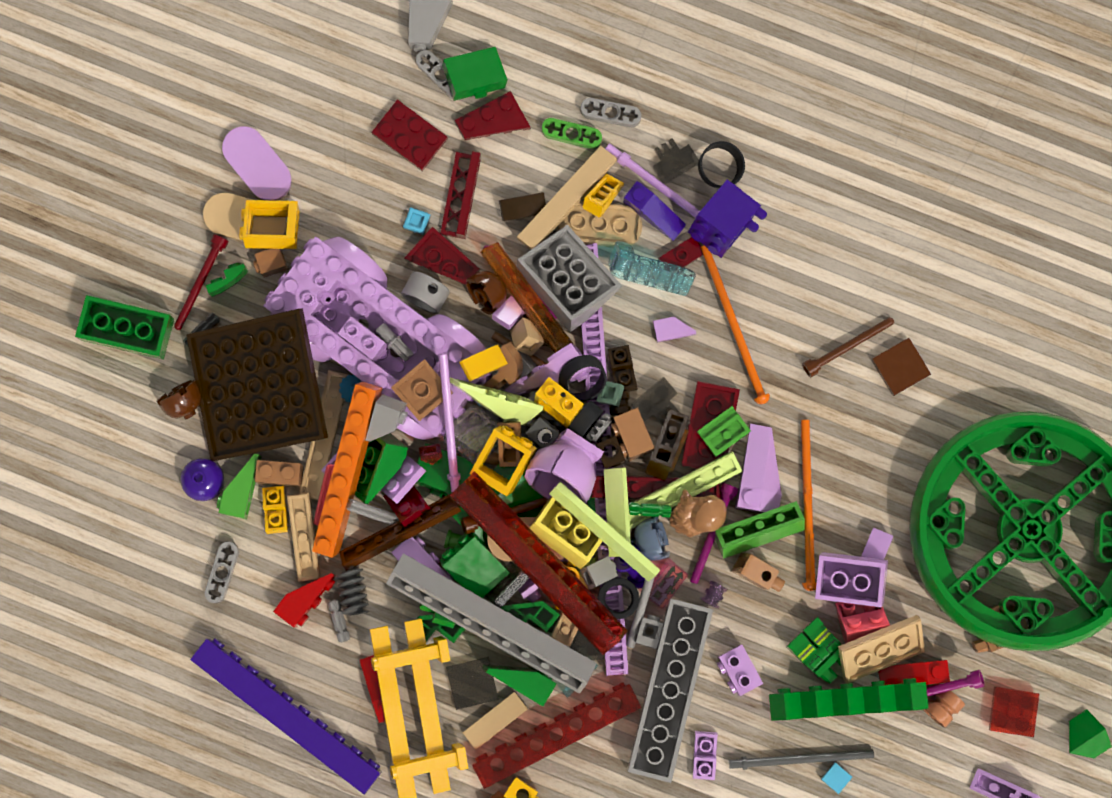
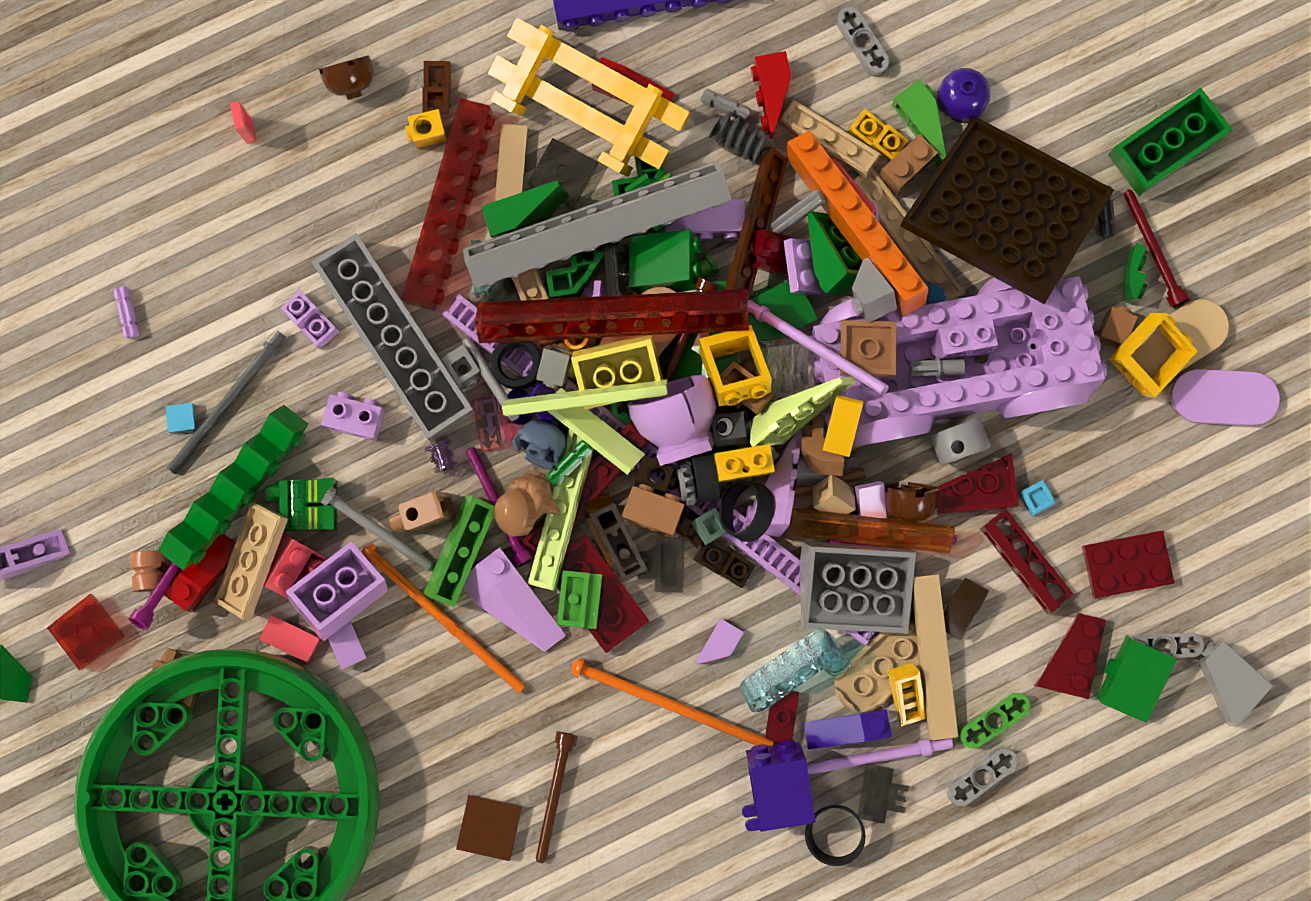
camera: 135 degrees right, 0 degrees up
(181, 400) = (1054, 134): reddish brown cylinder -> none
(430, 453) = (803, 312): clear red slope -> none
(801, 635) = (376, 529): none -> light grey bar
(903, 585) = (290, 638): none -> coral tile

